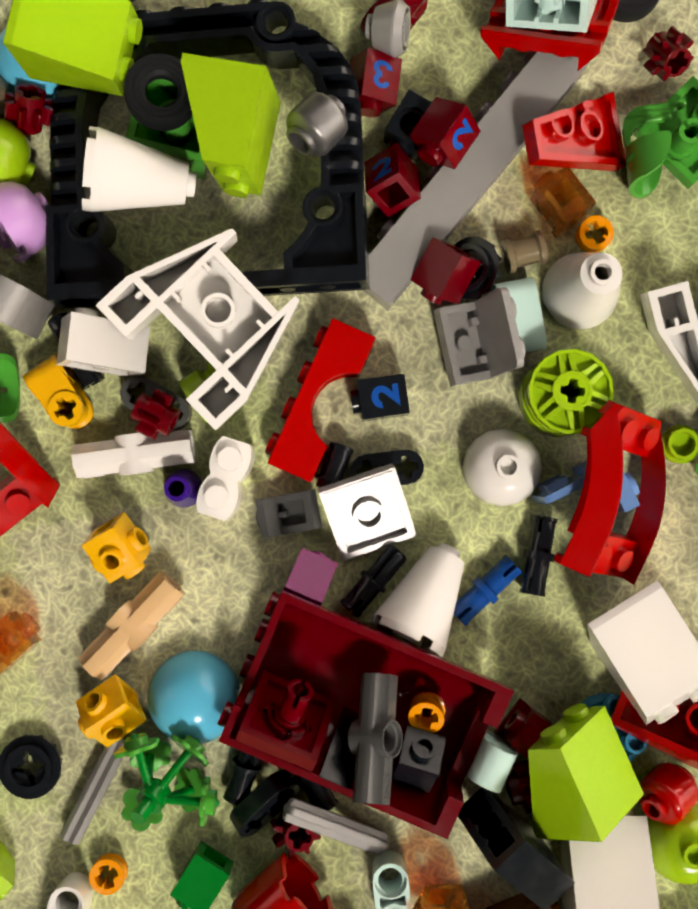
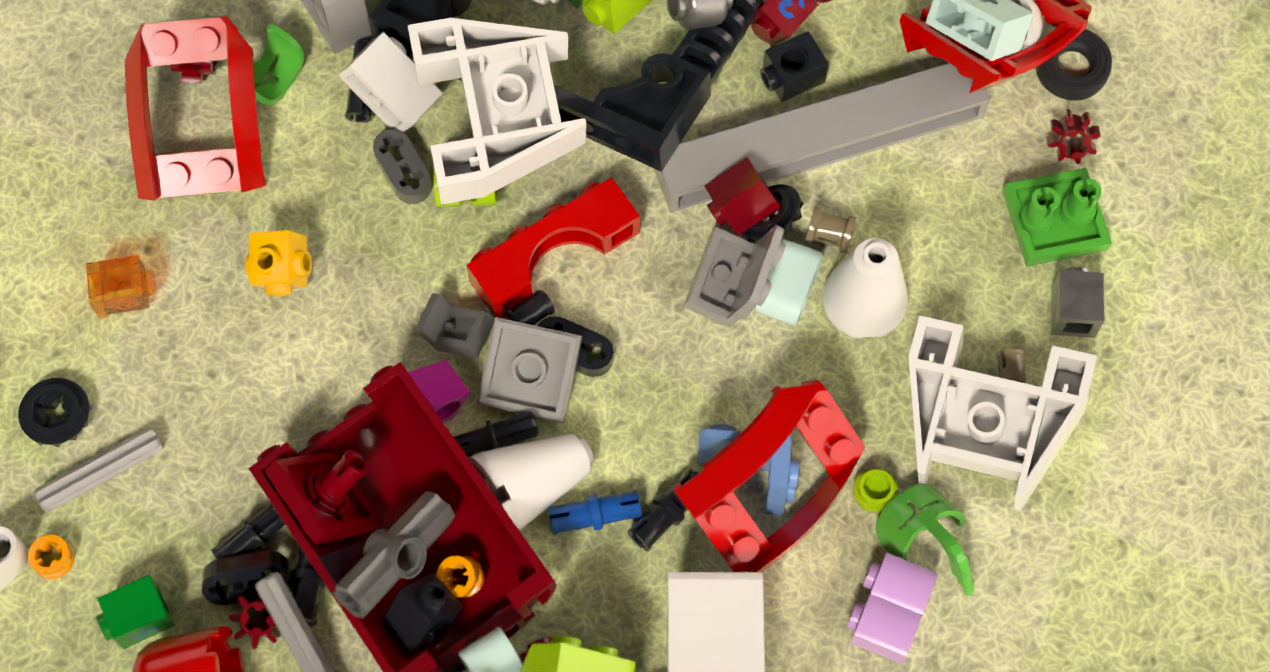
camera: 30 degrees right, 20 degrees down
(57, 388) = (323, 108): yellow piece -> none
(110, 711) = (165, 400): yellow brick -> none
(131, 626) = (240, 341): tan piece -> none
(133, 454) = (351, 195): white piece -> none
(155, 414) = (395, 164): dark red gear -> none
(191, 487) = (373, 247): dark purple cone -> none
(191, 694) = (237, 435): medium azure piece -> none
(191, 792) = (166, 471): plant -> none
(223, 489) = (412, 265): white brick -> none
(380, 398) = (611, 277): black brick -> none
(392, 180) = (744, 96): dark red brick -> none
(445, 133) = (815, 80): dark red brick -> none
(502, 467) = (683, 403): white cylinder -> none
(550, 410) = (777, 339): lime wheel -> none
(569, 191) = (893, 205): clear orange brick -> none
(577, 137) = (942, 157): red wing -> none
(599, 223) = (921, 250): light orange bush -> none
(648, 152) = (999, 190): bright green helmet -> none

